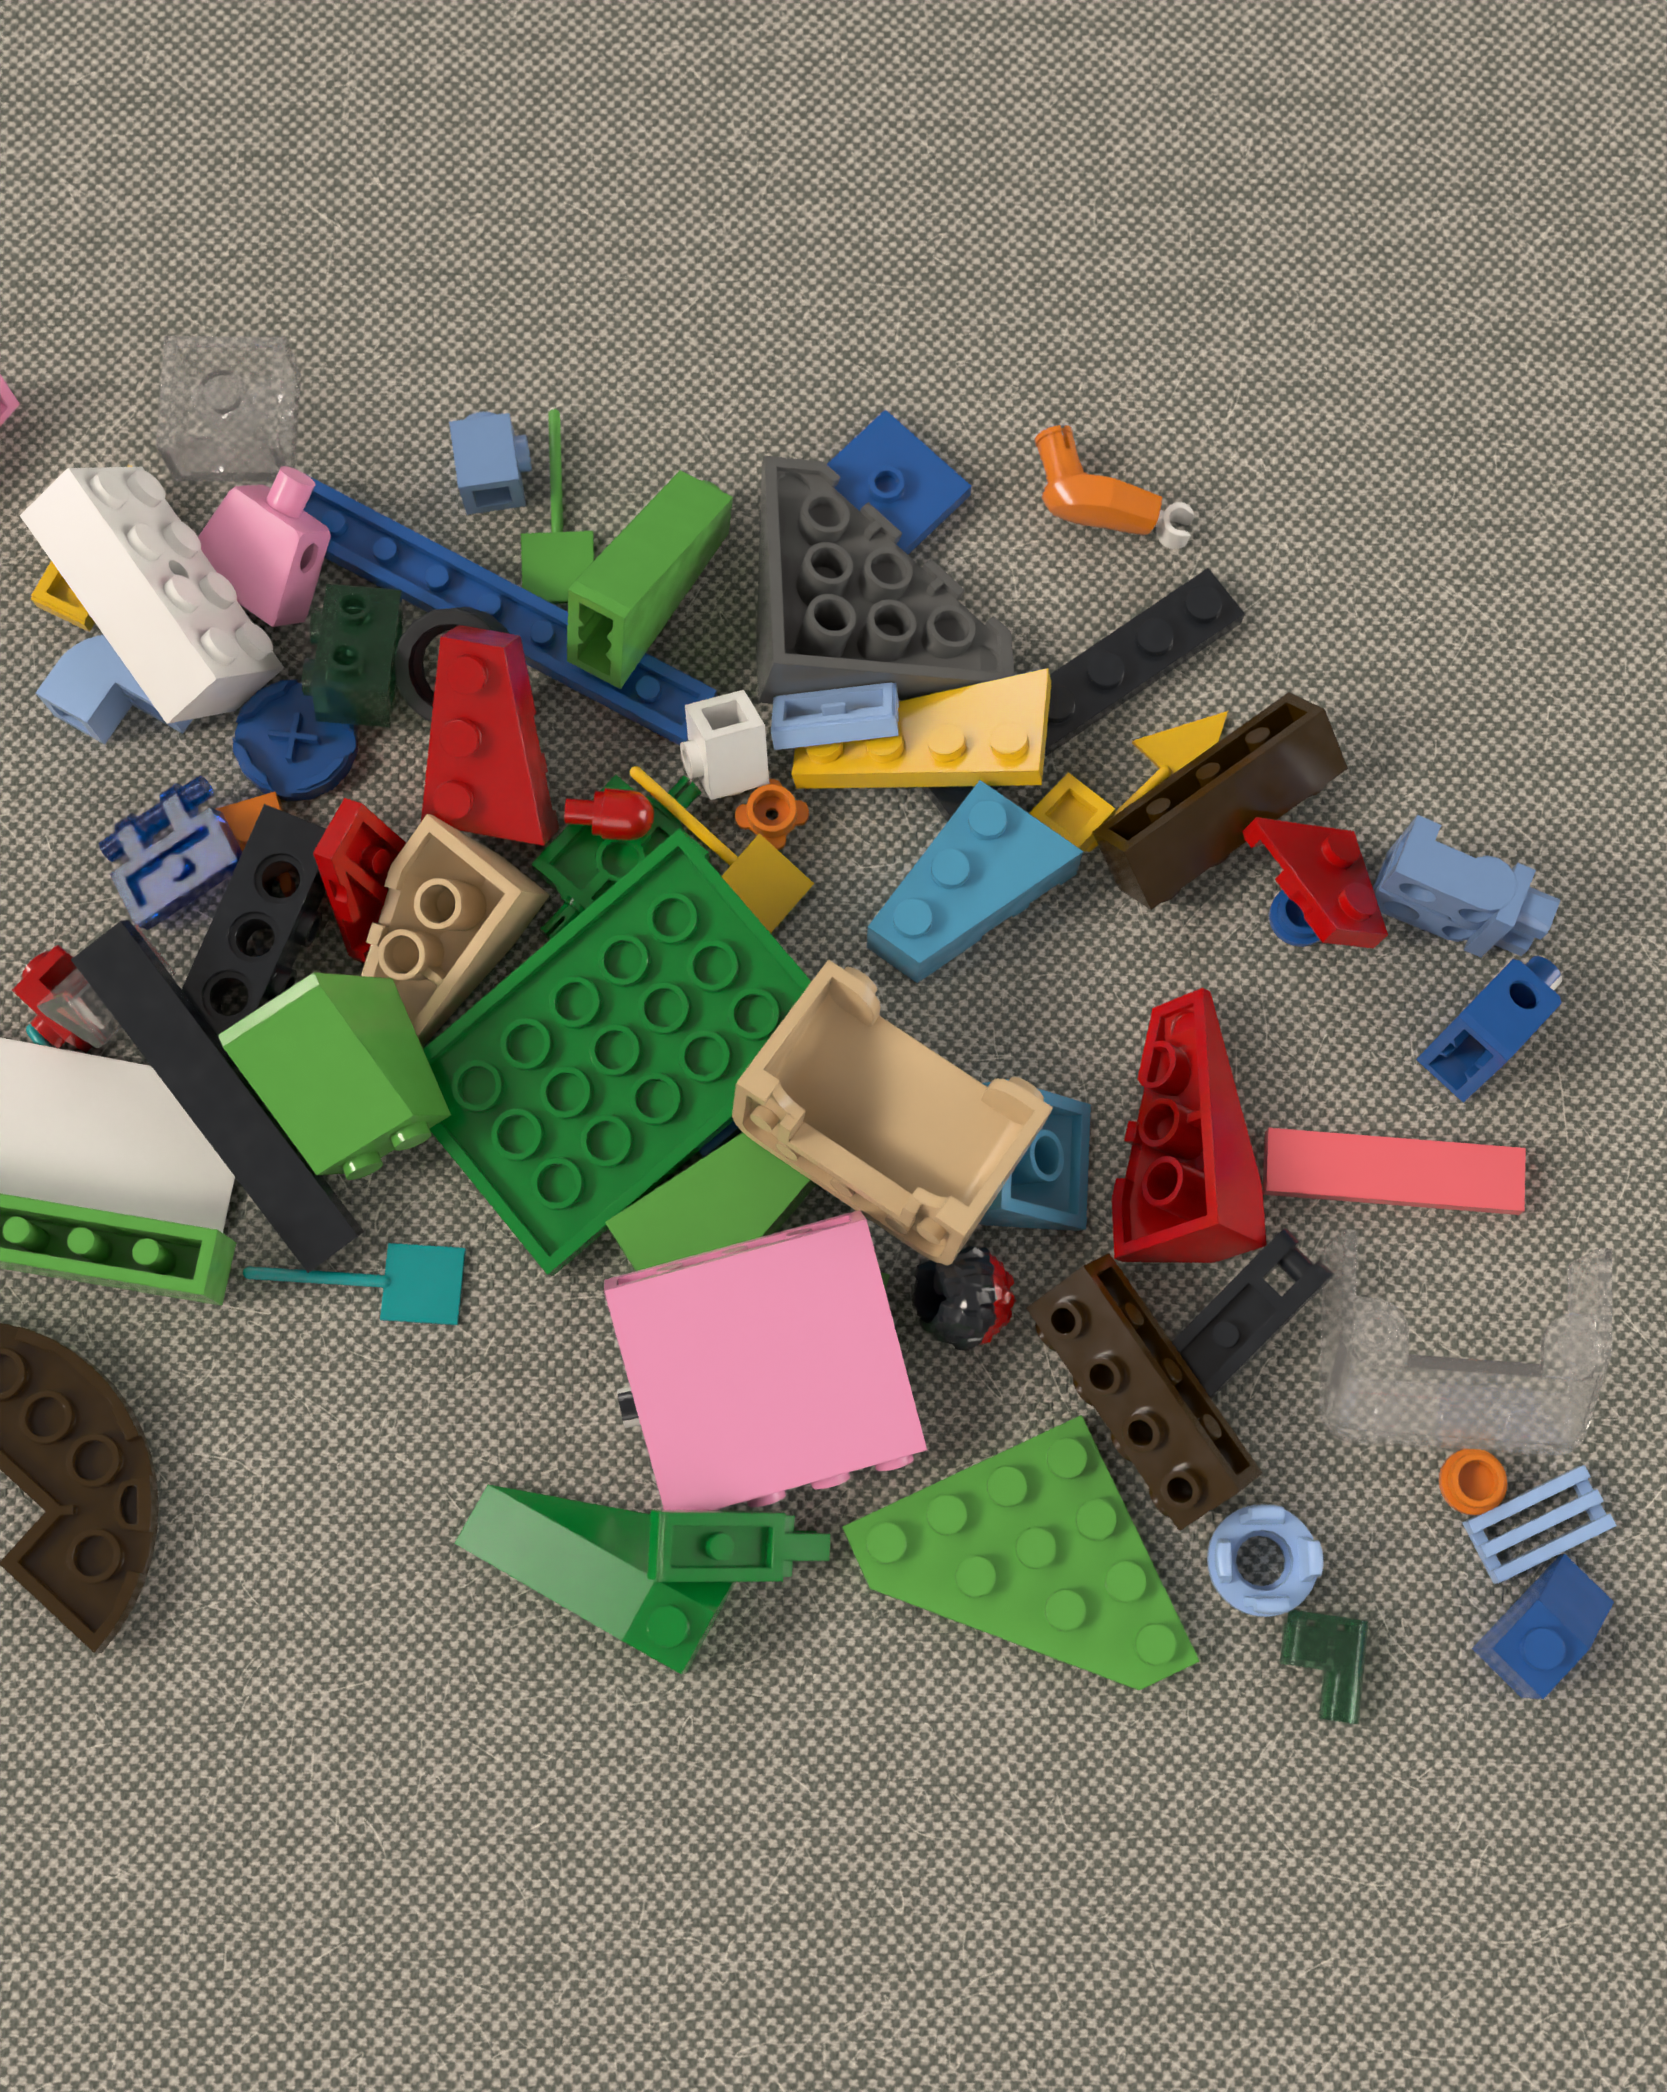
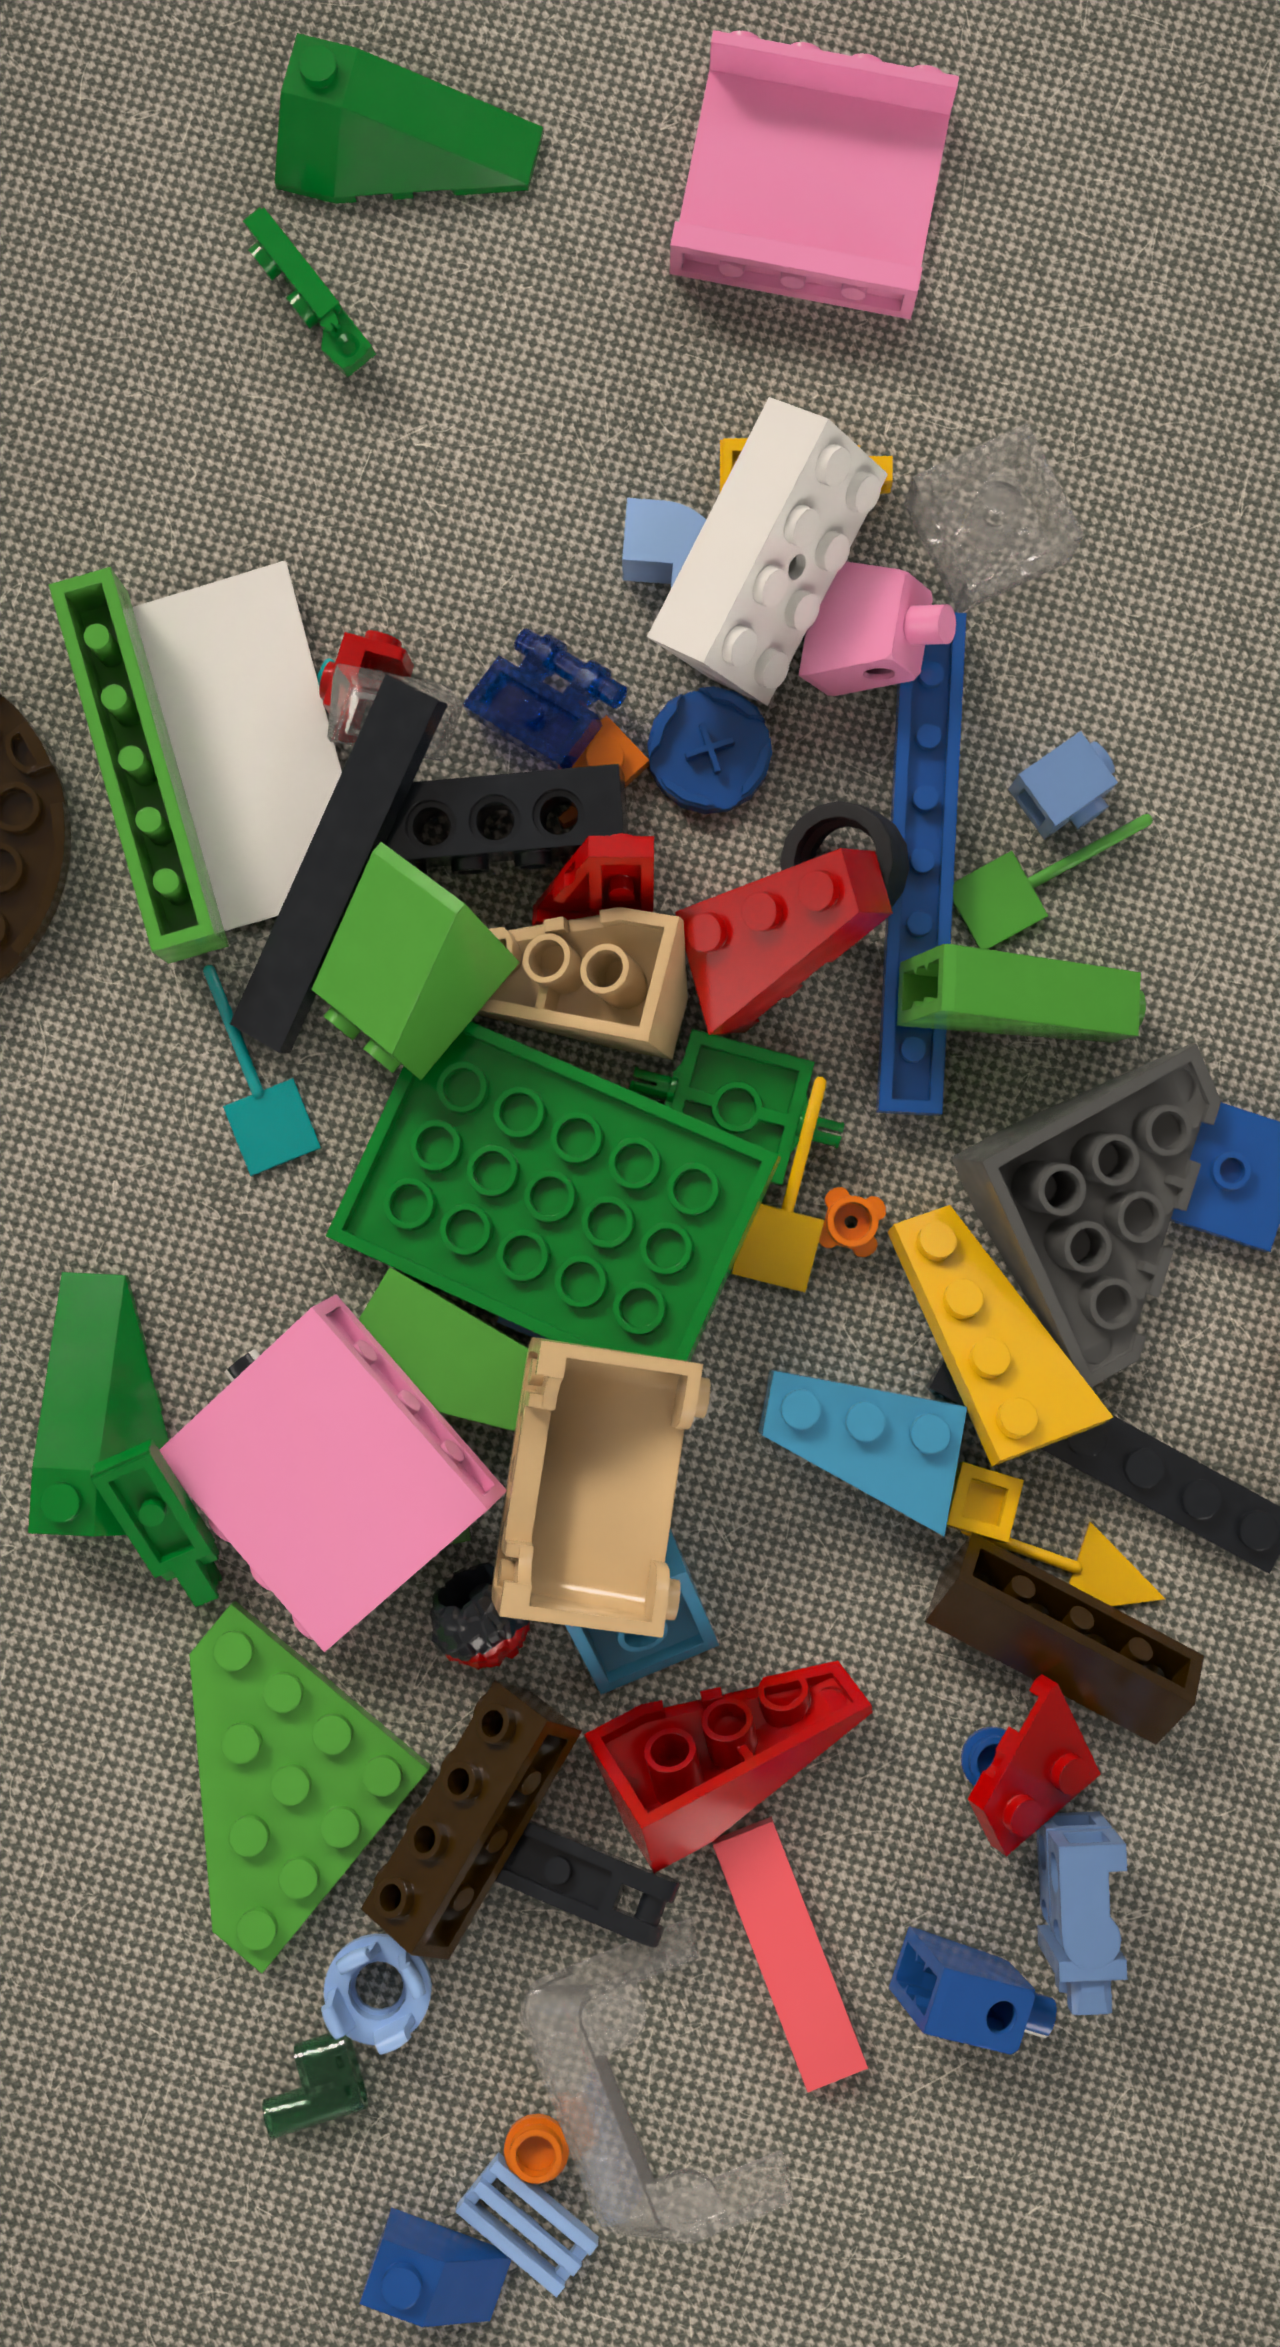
camera: 65 degrees right, 10 degrees up
(354, 655) = (810, 765): clear green brick -> none
(612, 813) = (770, 1081): red cylinder -> none
(725, 745) = (889, 1150): white brick -> none
(835, 716) = (960, 1242): light blue tile -> none

